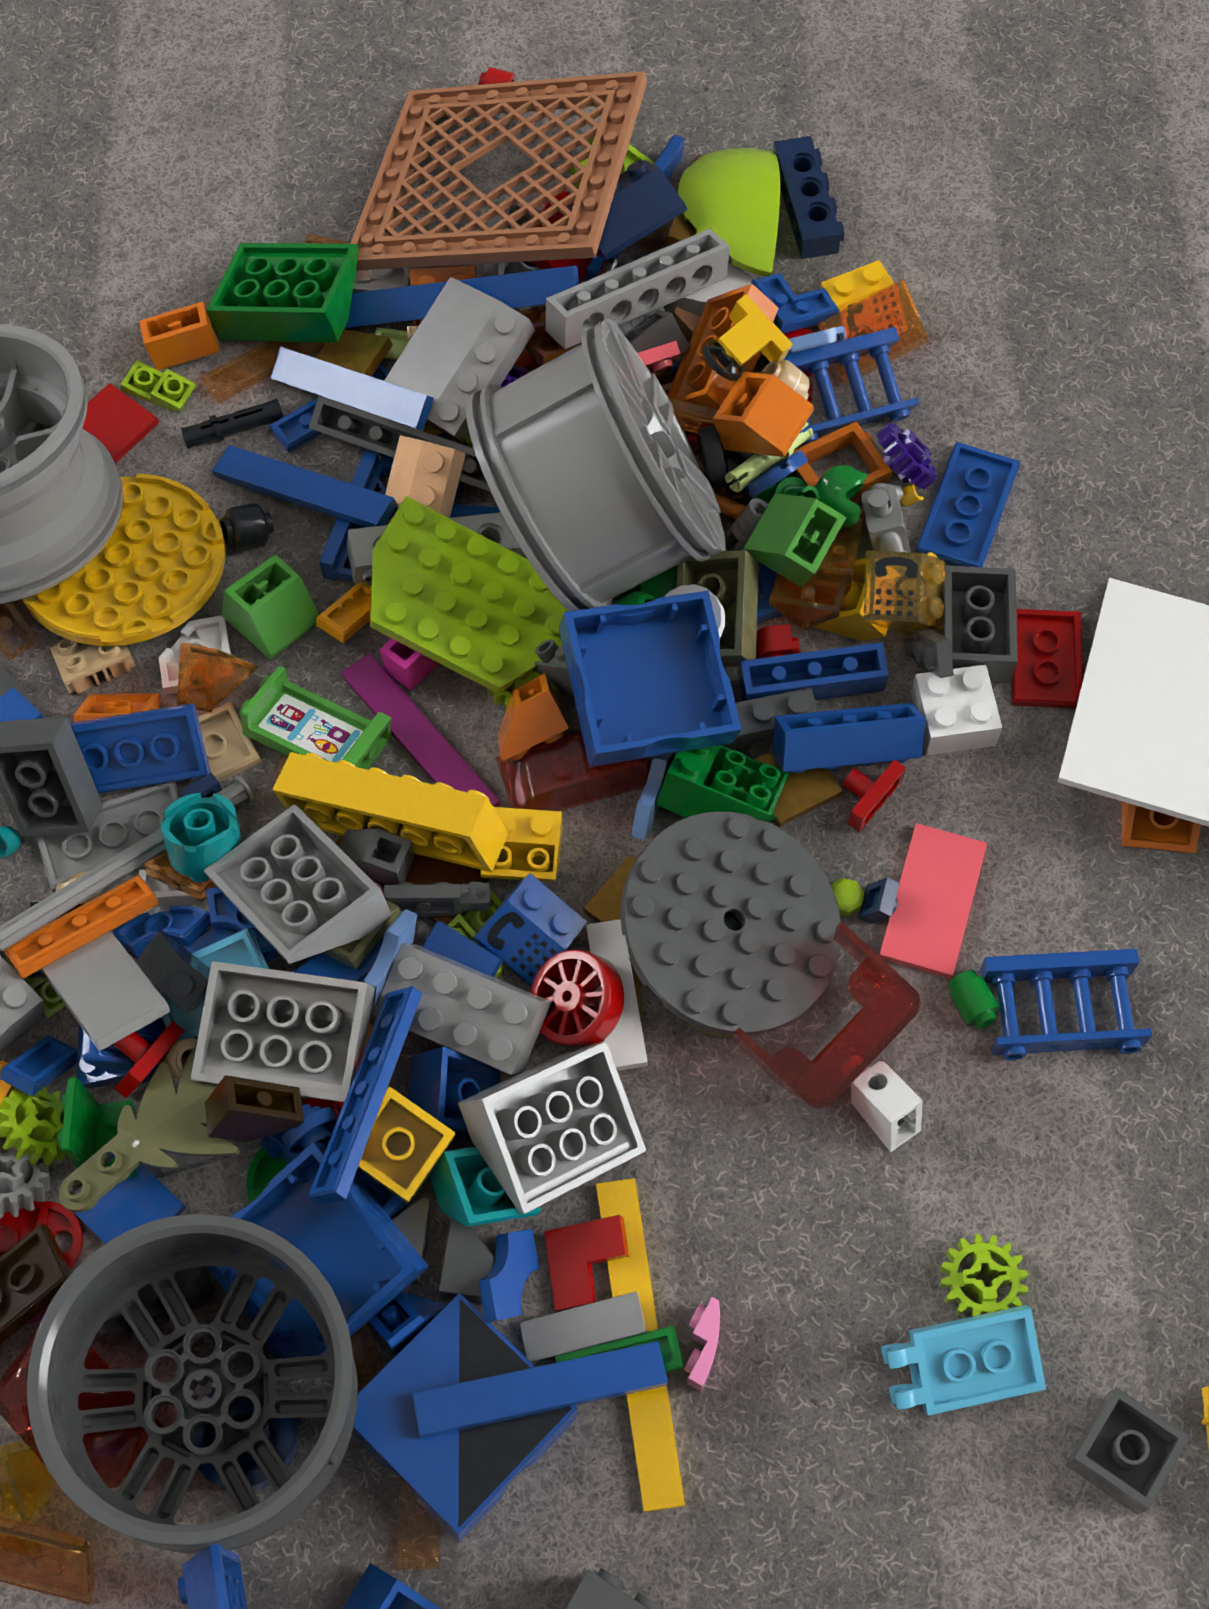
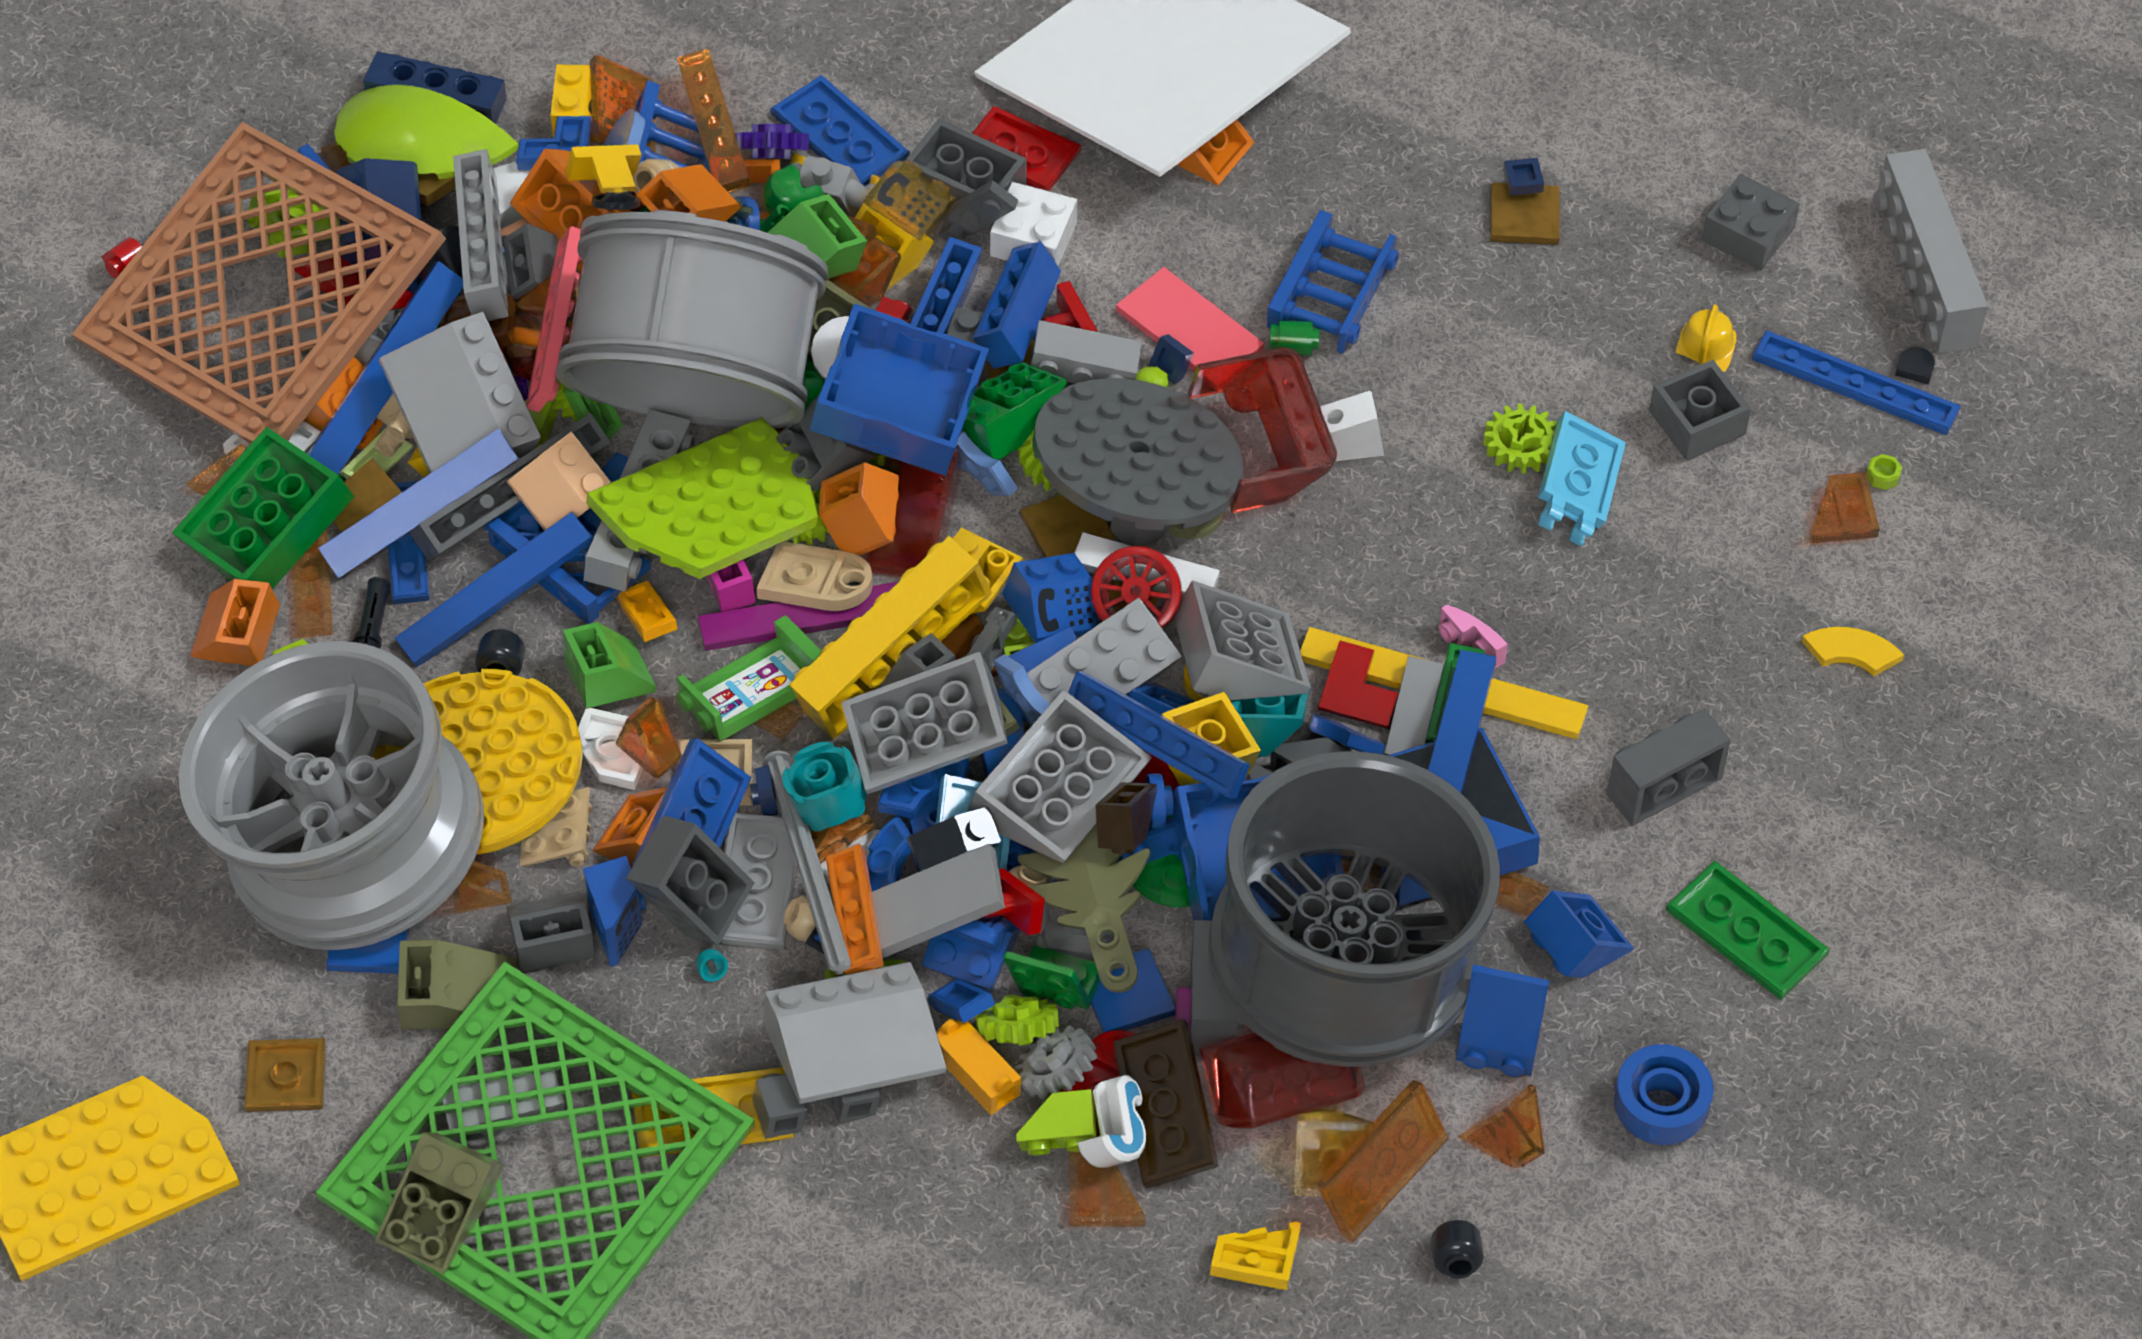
camera: 65 degrees left, 10 degrees down
(456, 718) = (815, 577): none -> tan tile
(828, 822) = (1083, 353): none -> light grey brick
(892, 400) = (713, 120): none -> clear orange tile

